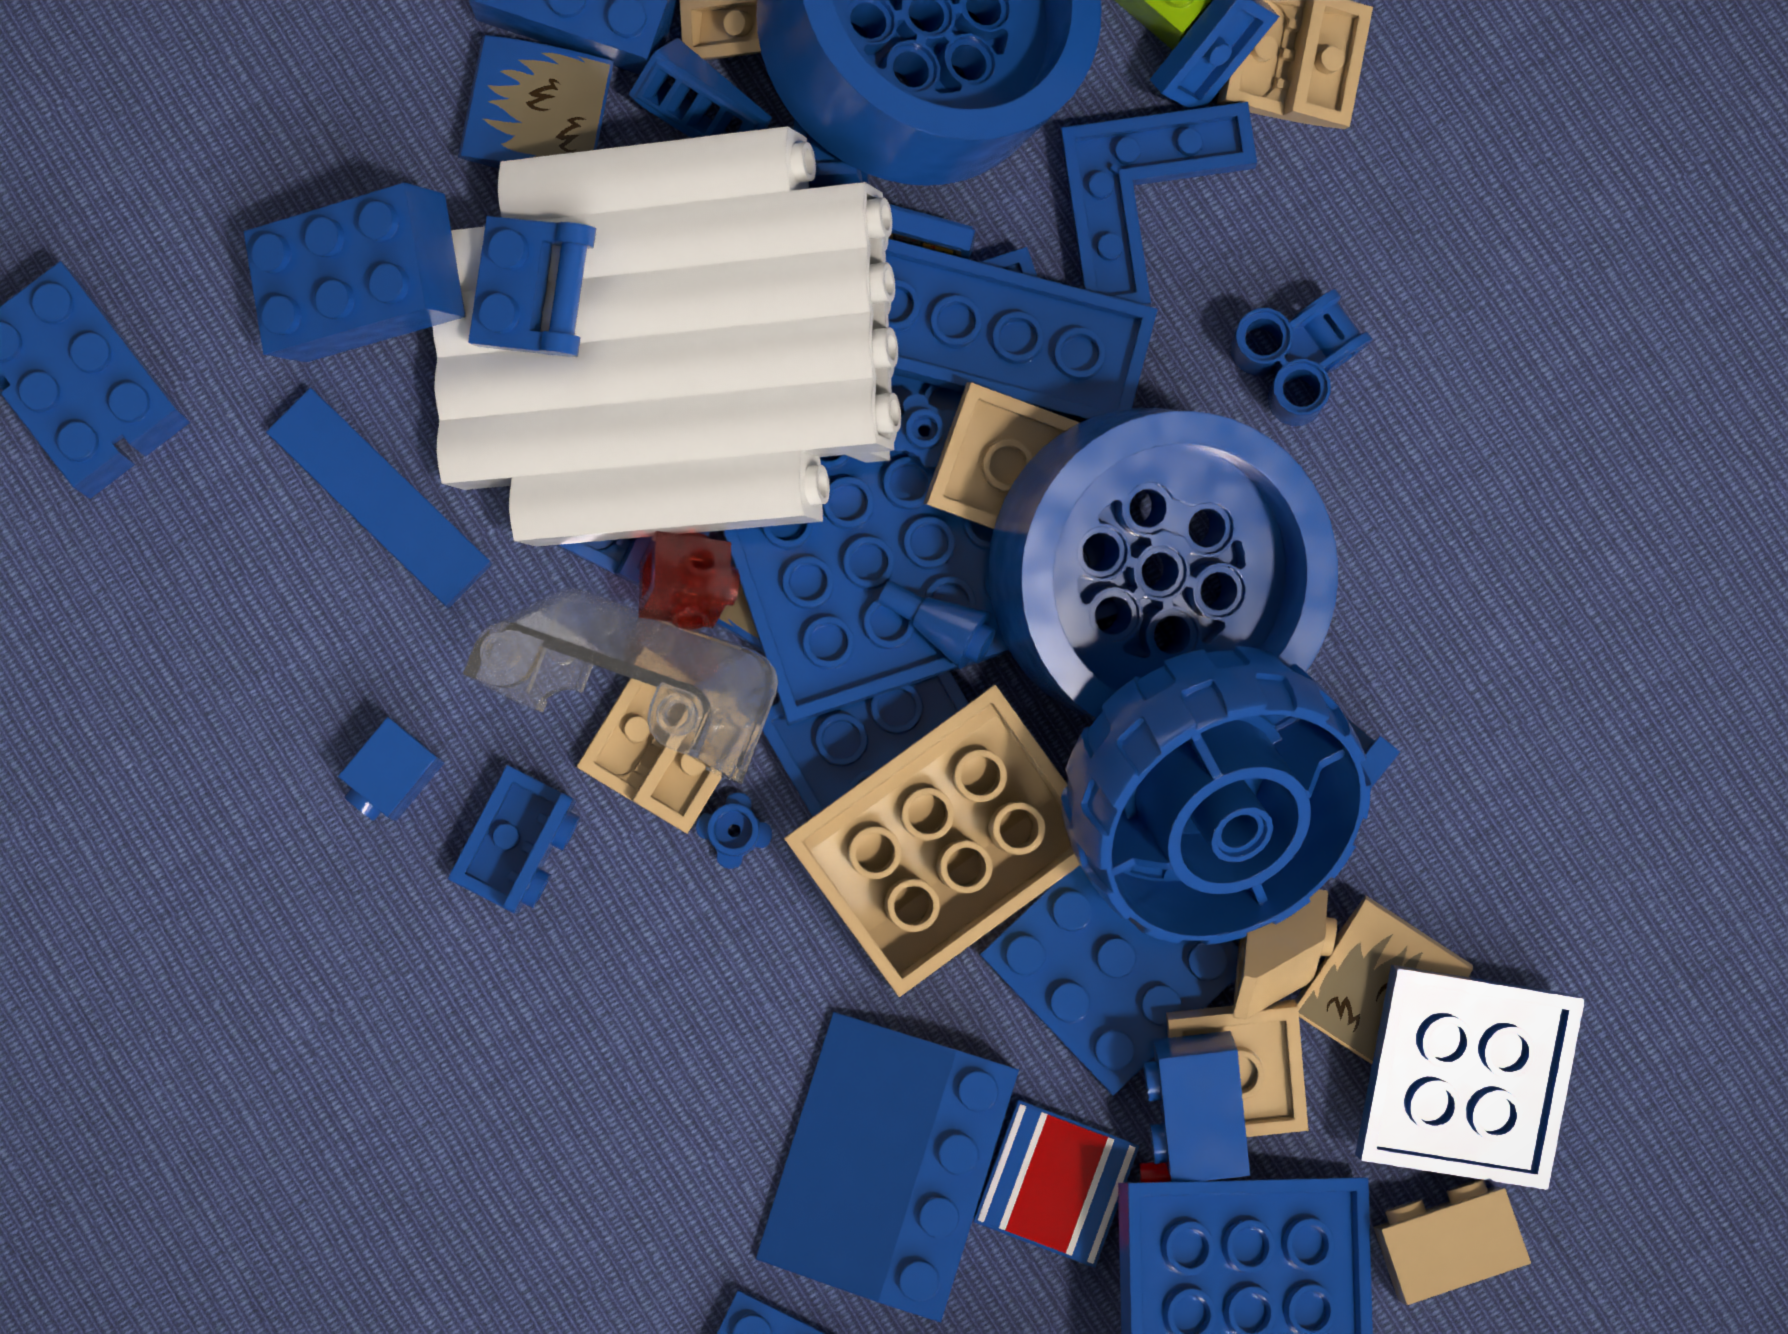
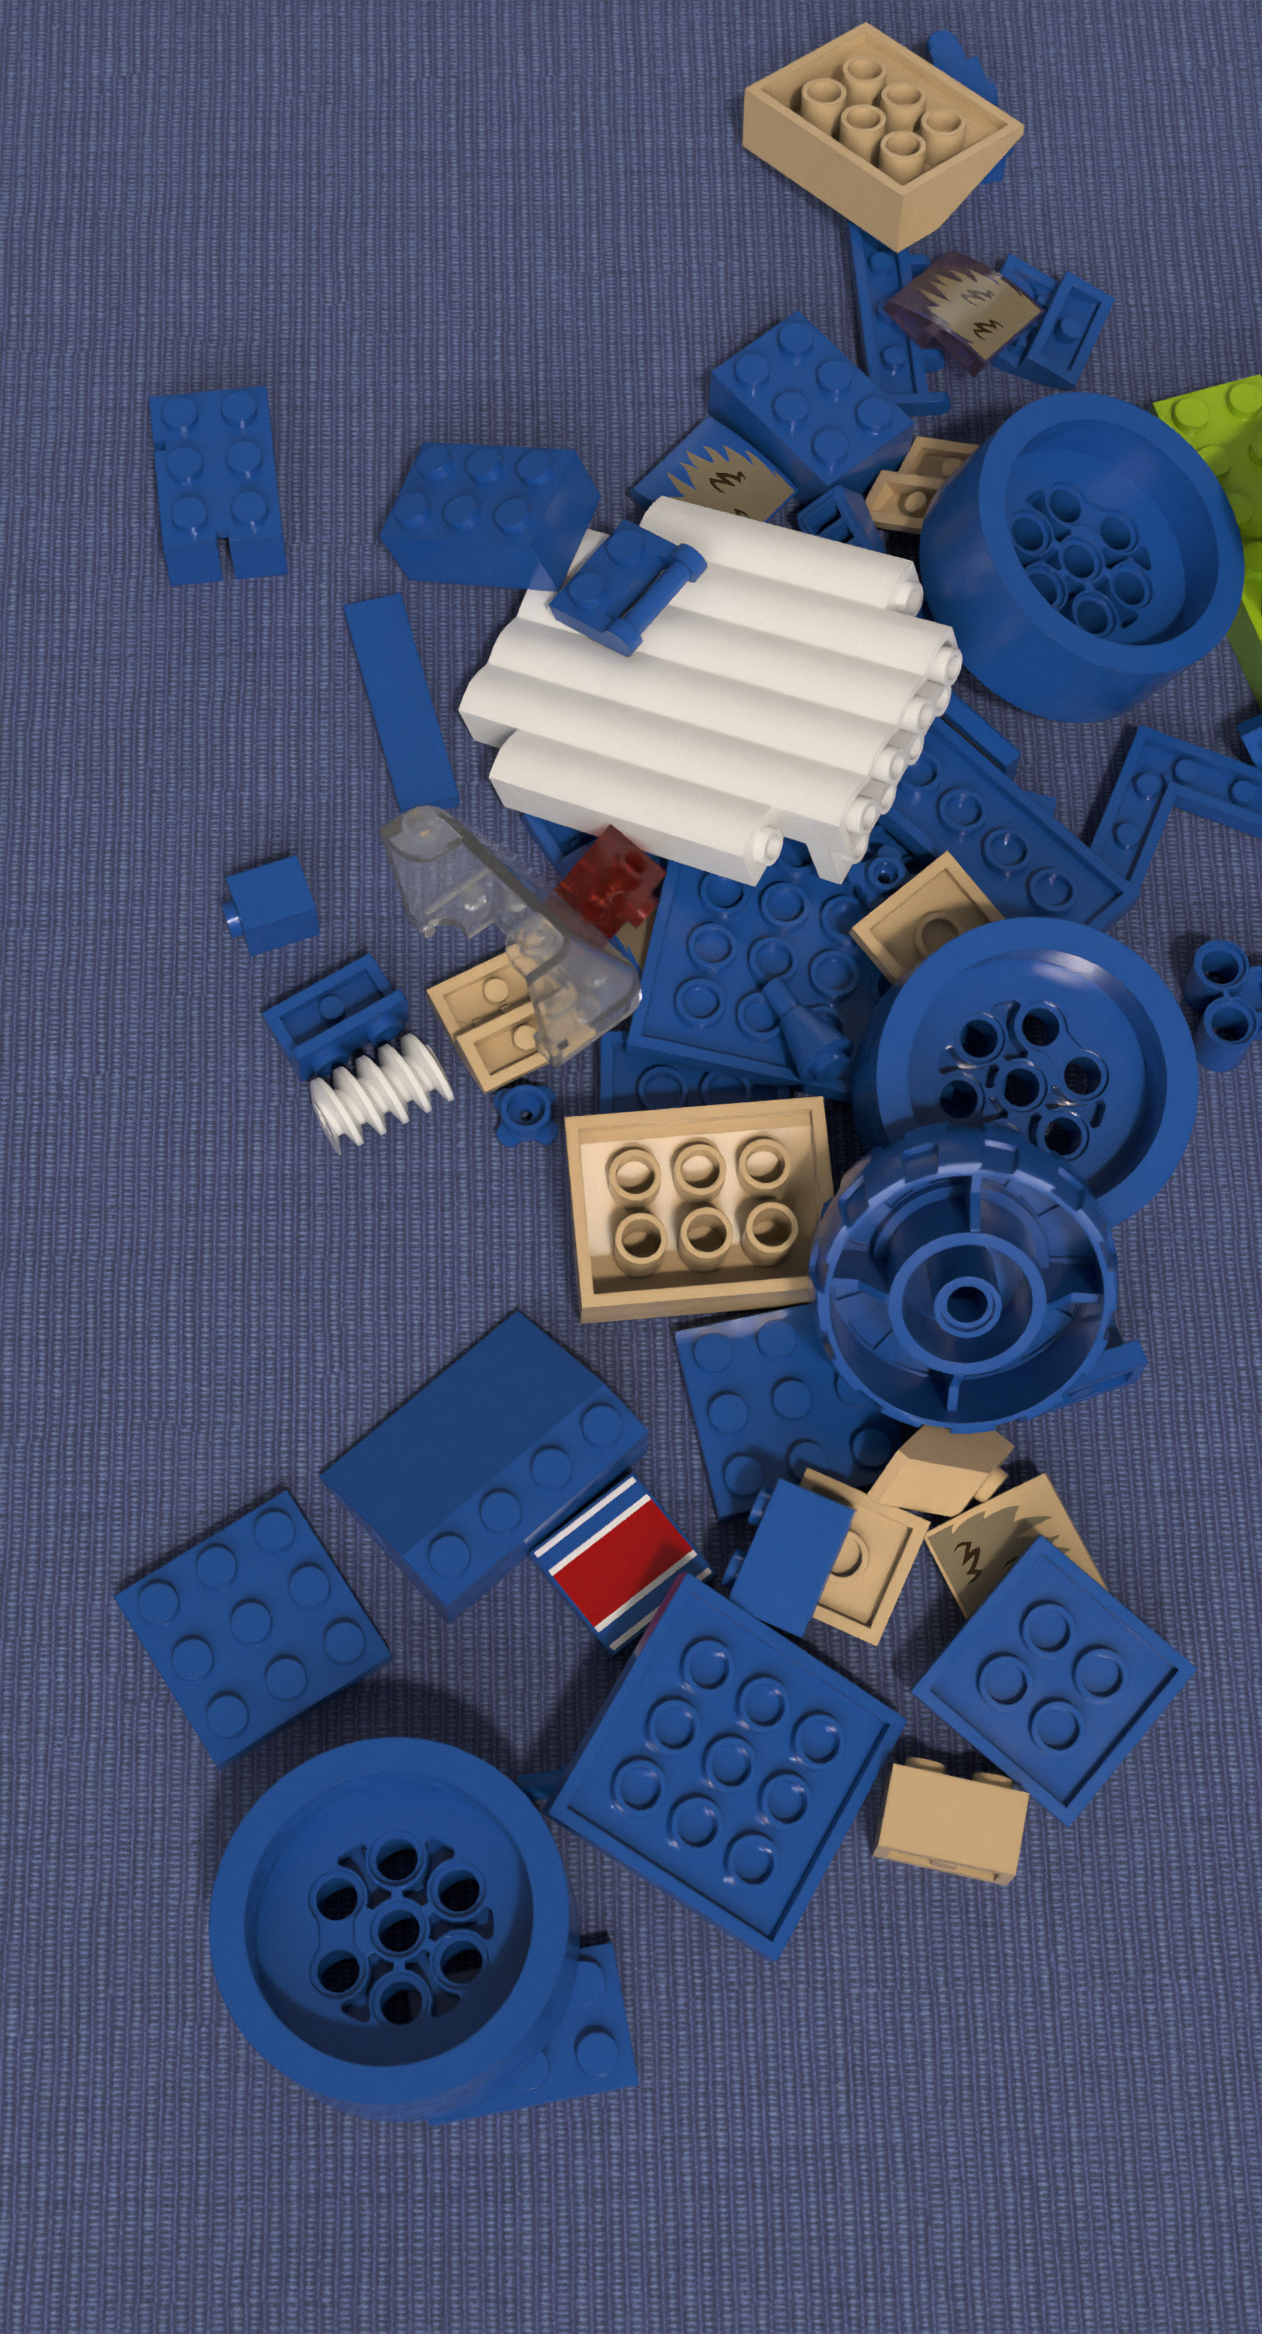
camera: 25 degrees right, 15 degrees down
(596, 891) = (378, 1090): none -> white piece

